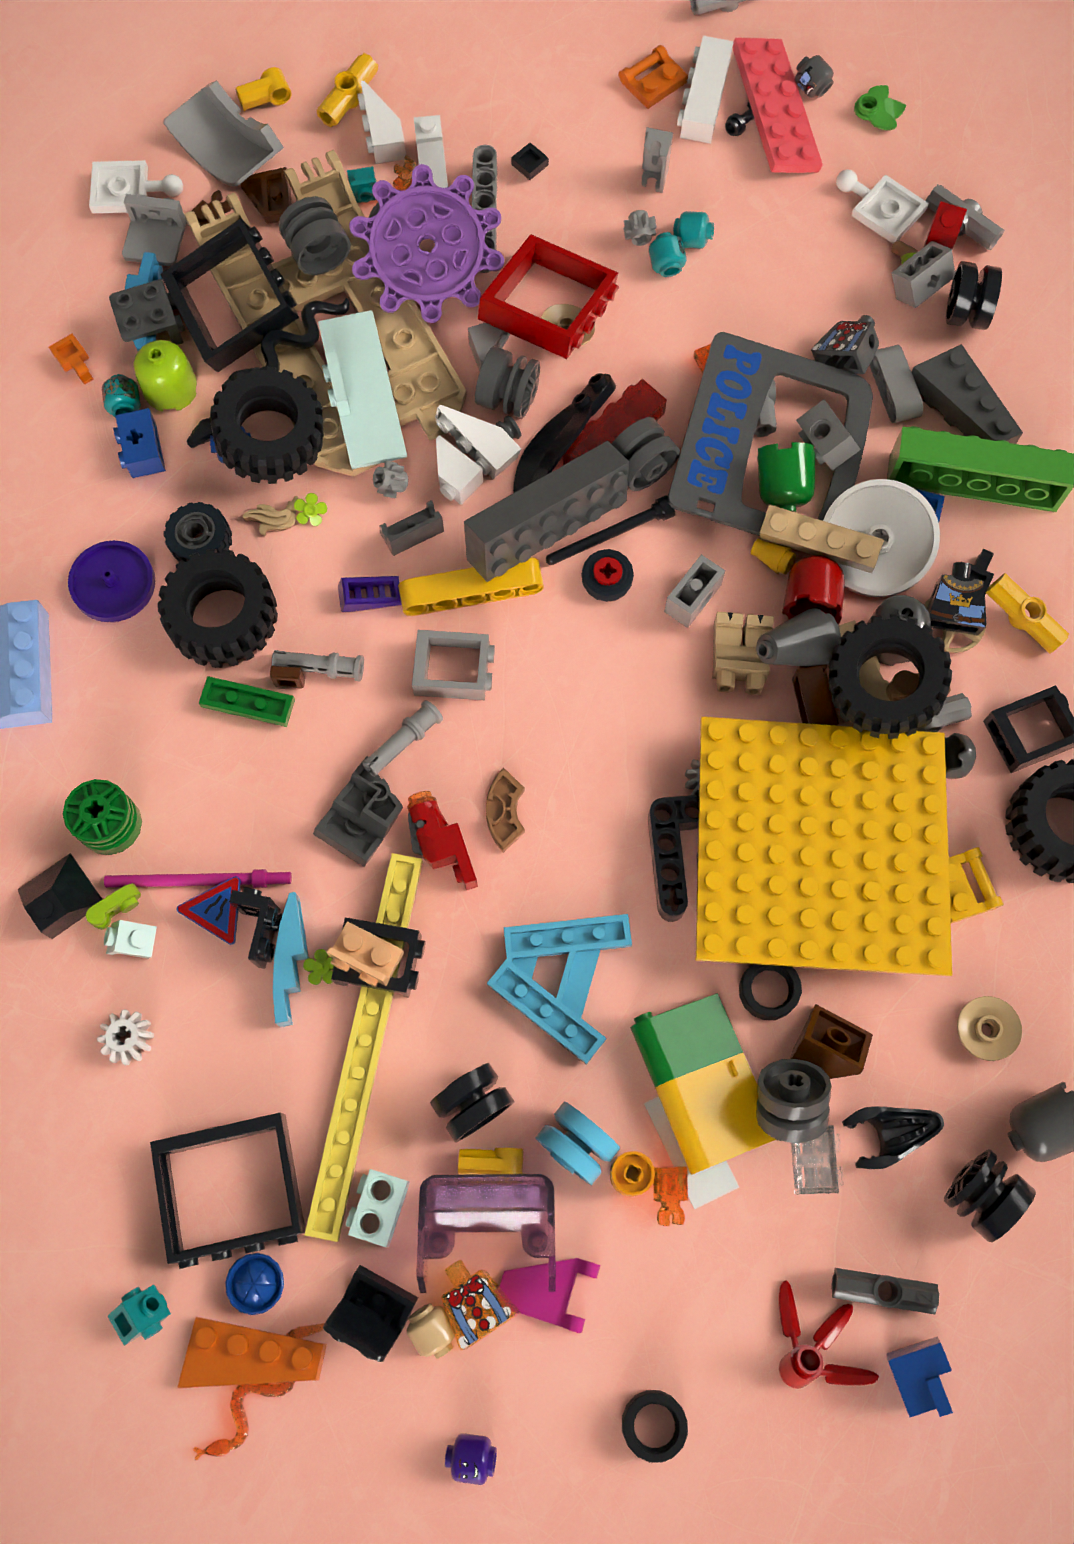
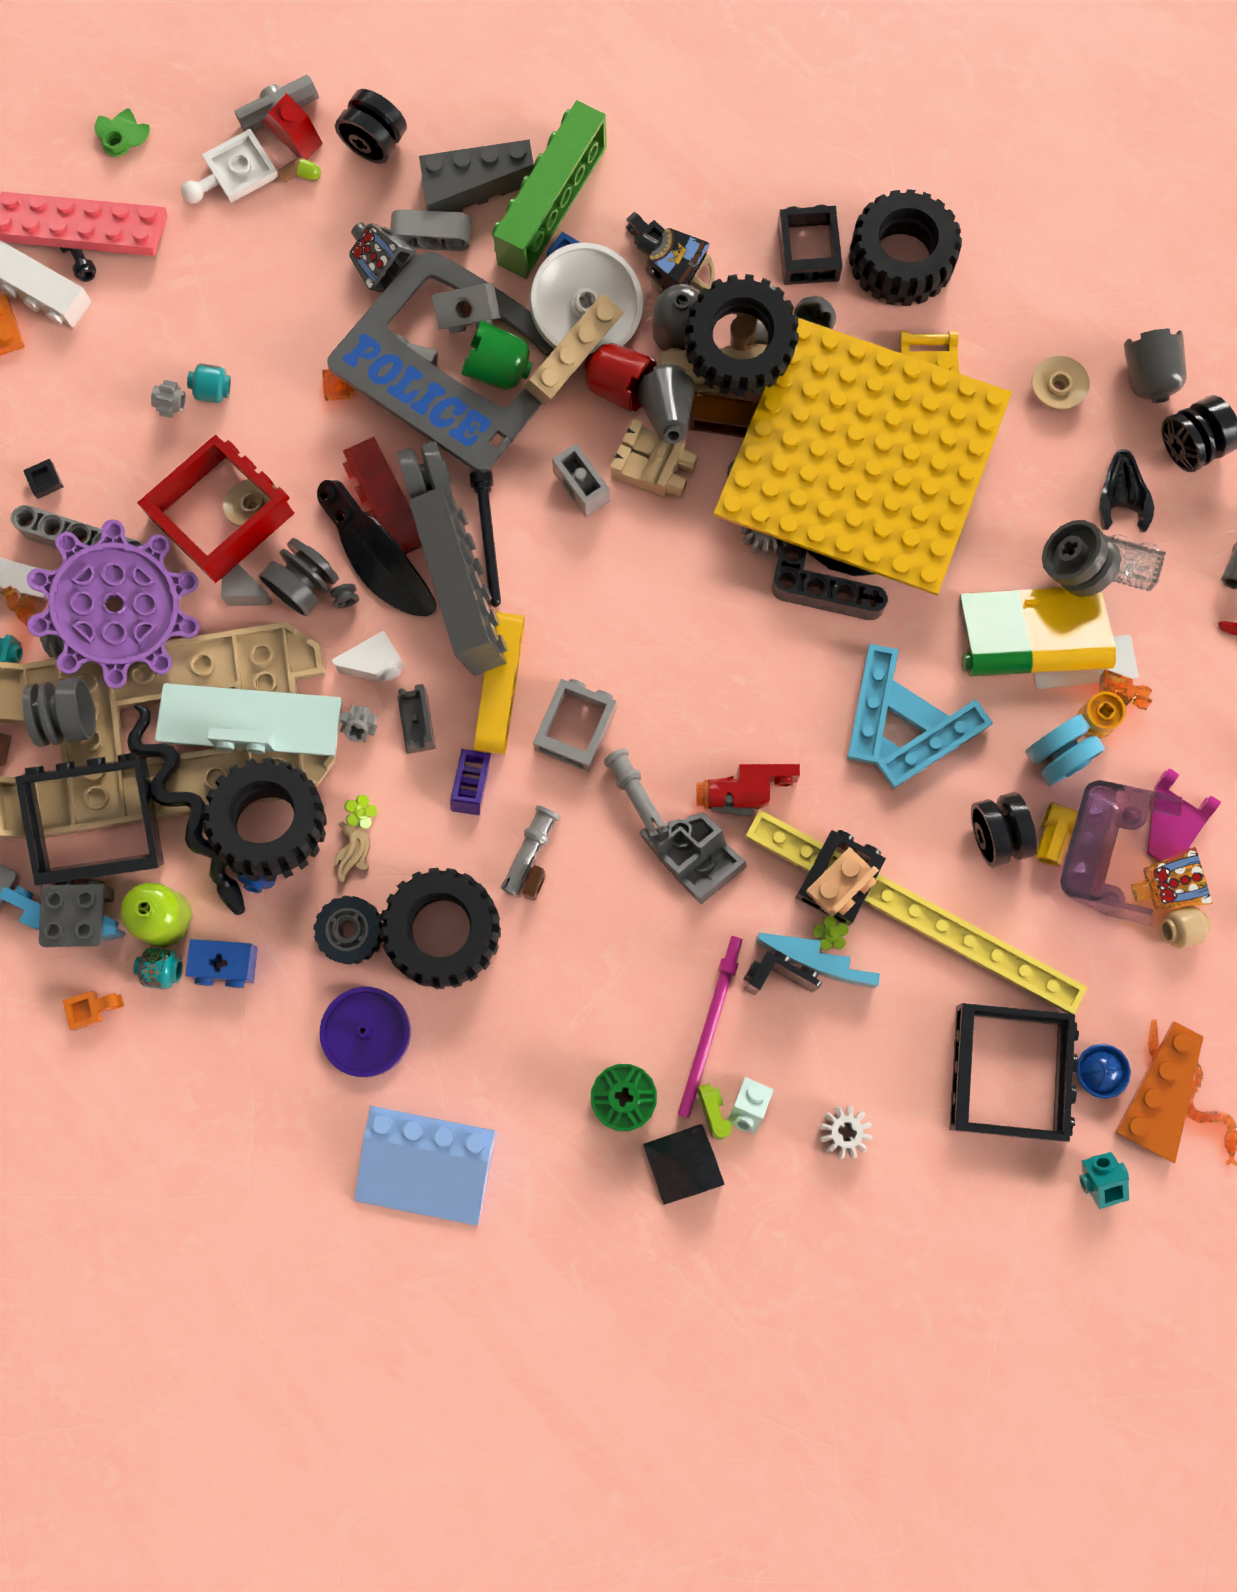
camera: 70 degrees left, 5 degrees up
(213, 911) = (748, 1014): piece -> none
(247, 701) = (545, 930): green plate -> none
(370, 1314) = (1159, 974): black bracket -> none
(386, 1210) = (1070, 935): light aqua brick -> none
(481, 440) = (354, 620): white slope -> none
(501, 810) = (731, 724): medium nougat tile -> none
(607, 586) = (537, 563): black wheel -> none
(656, 157) = (99, 353): light grey hinge -> none
(694, 229) = (190, 349): teal head -> none
(763, 1012) = (992, 537): black tyre -> none
(775, 556) = (566, 400): yellow cone -> none
(814, 76) = (60, 177): dark grey head -> none
(832, 1044) = (1037, 513): reddish brown slope -> none
(923, 274) = (328, 161): light grey brick -> none
(1039, 625) = (702, 206): yellow piece -> none

